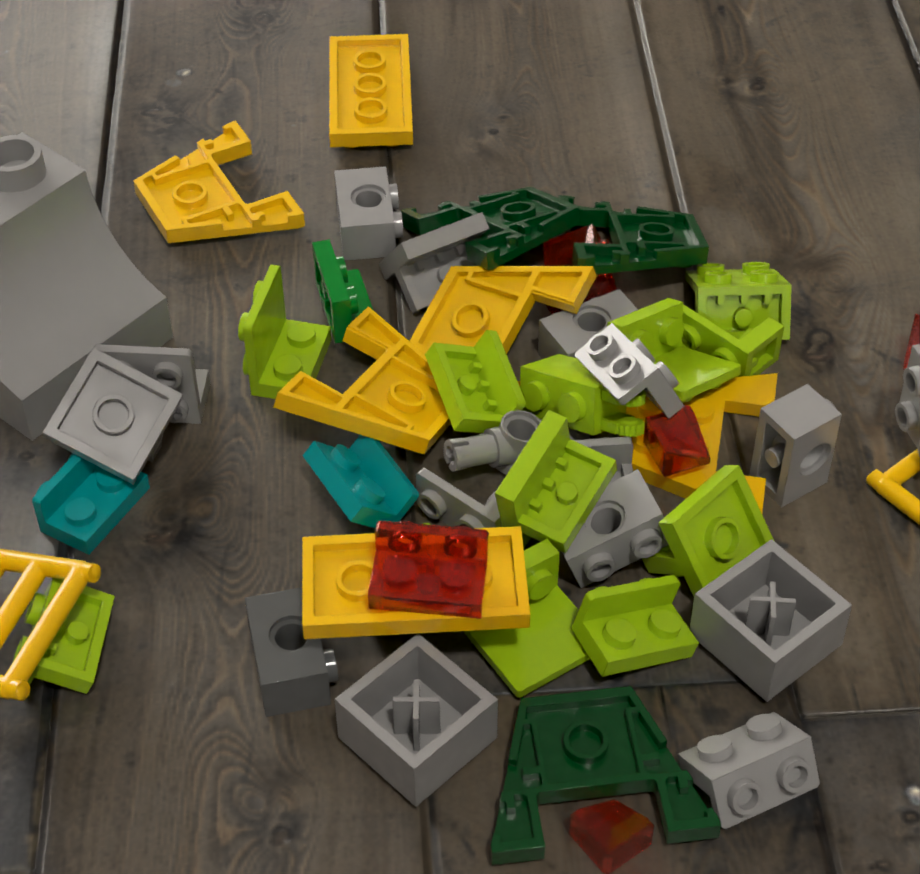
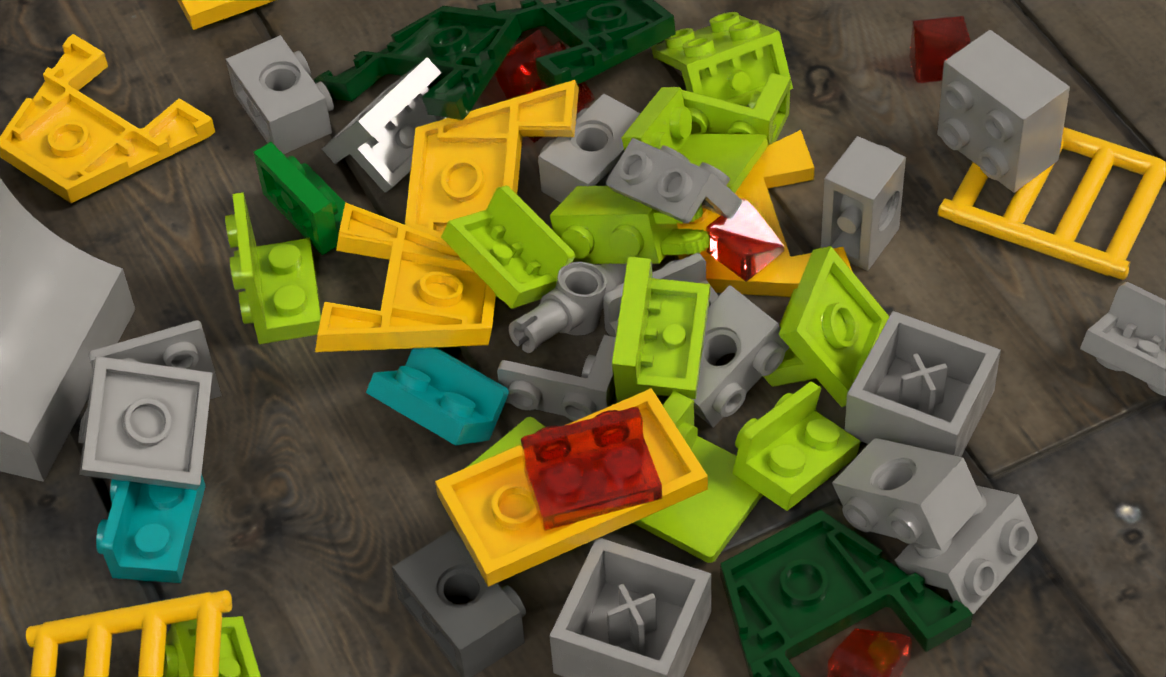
camera: 20 degrees left, 5 degrees up
(711, 699) = (908, 493): none -> light grey brick

